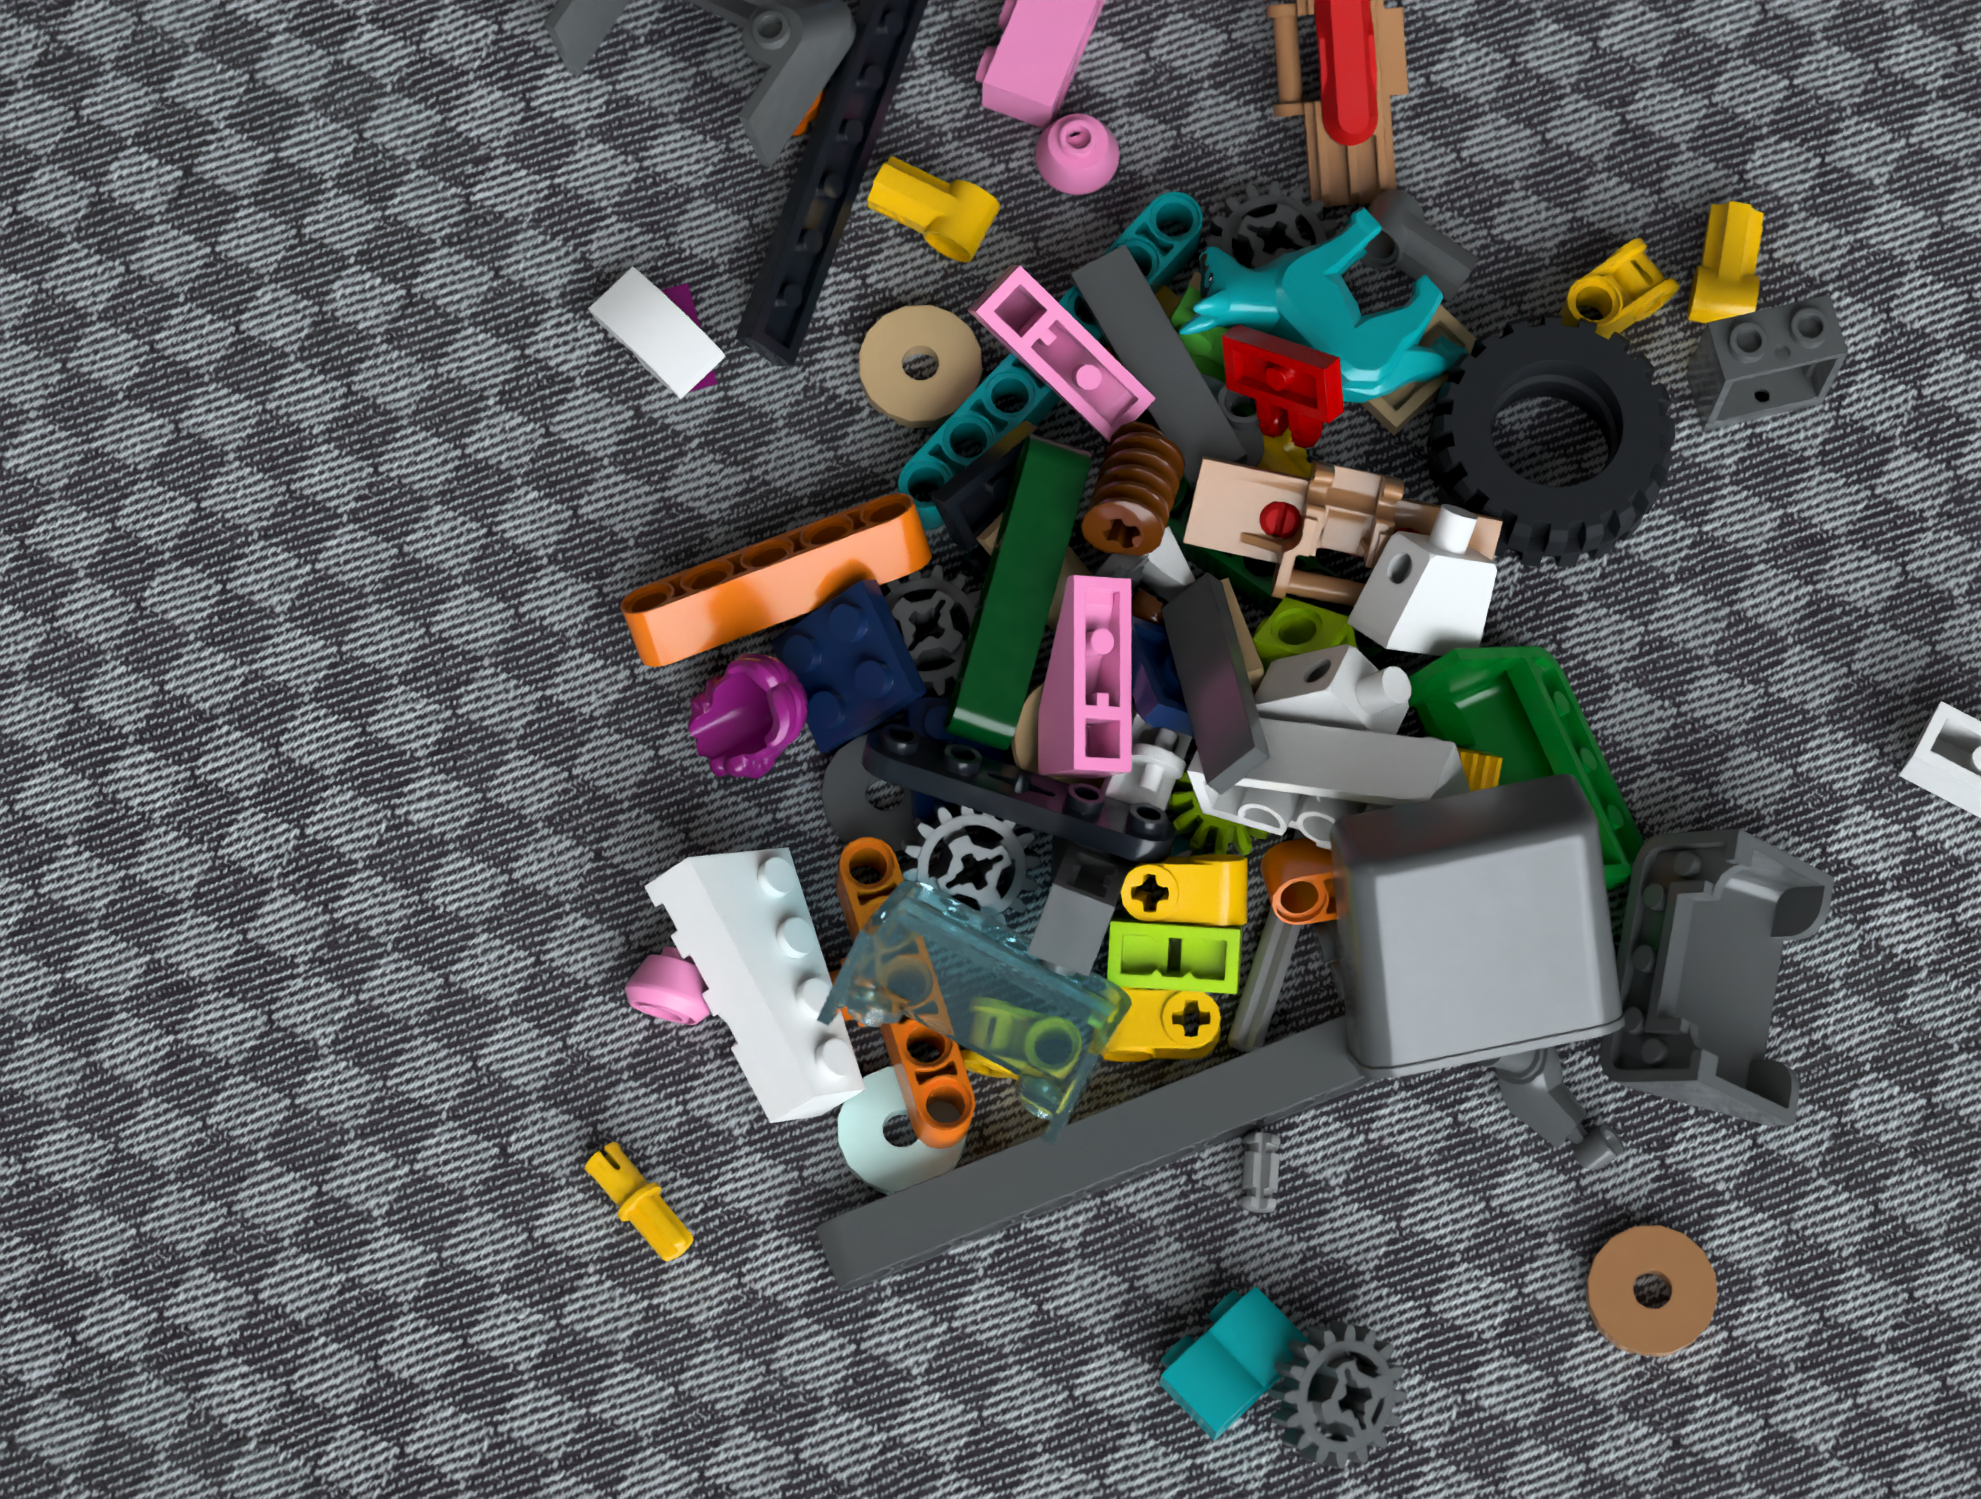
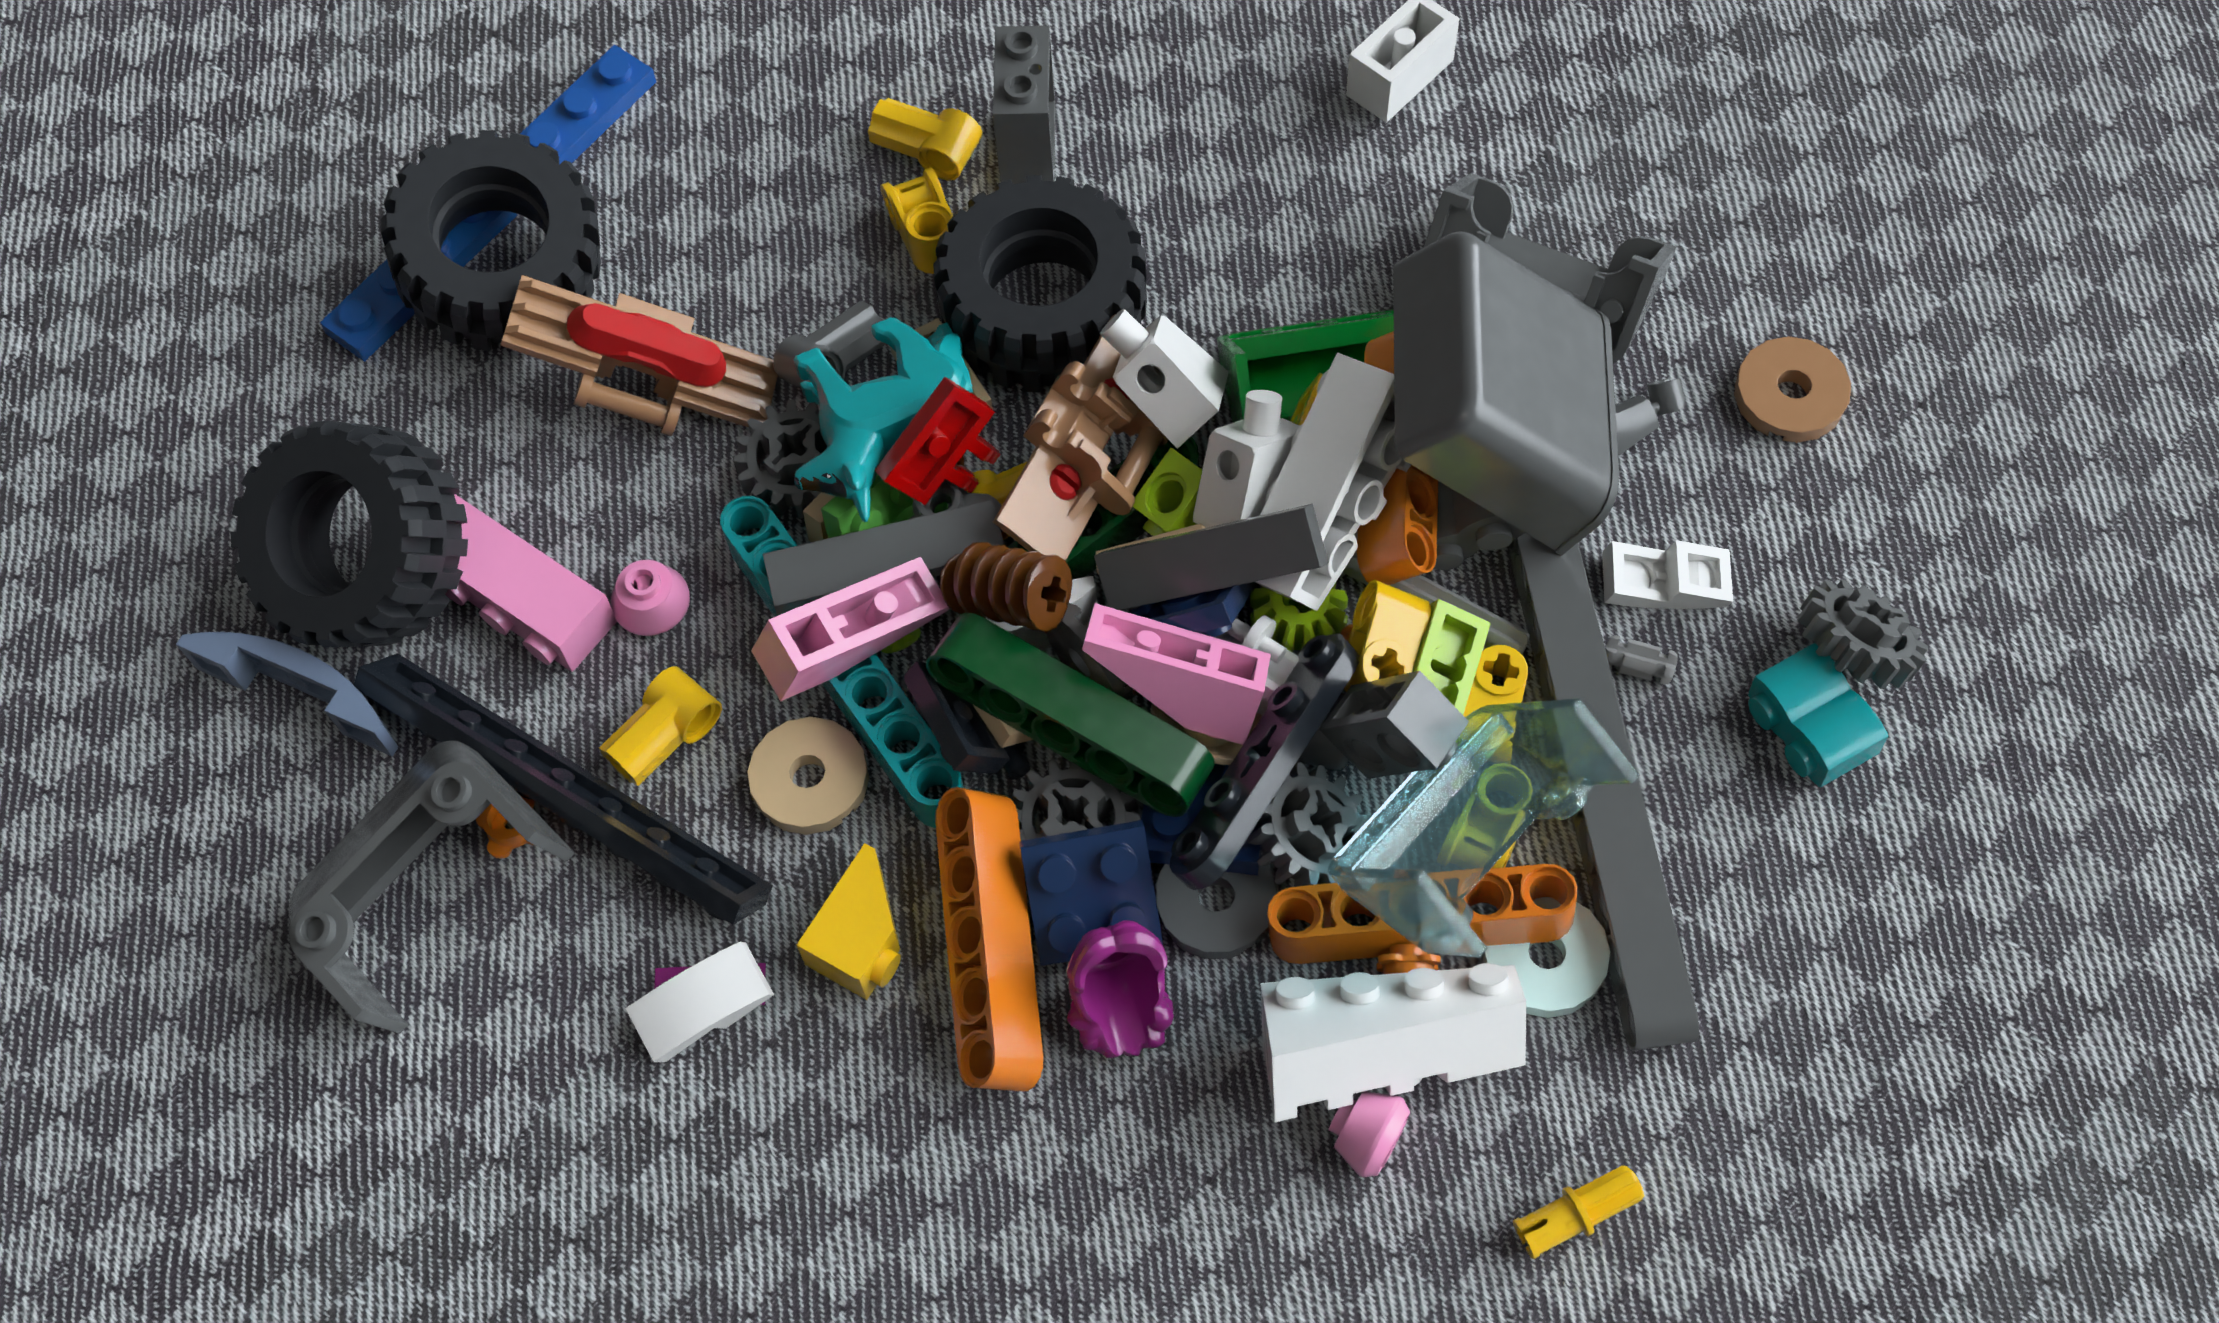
camera: 70 degrees left, 10 degrees down
(764, 456) = (855, 930): none -> yellow slope
(1371, 1187) = (1670, 579): none -> white slope

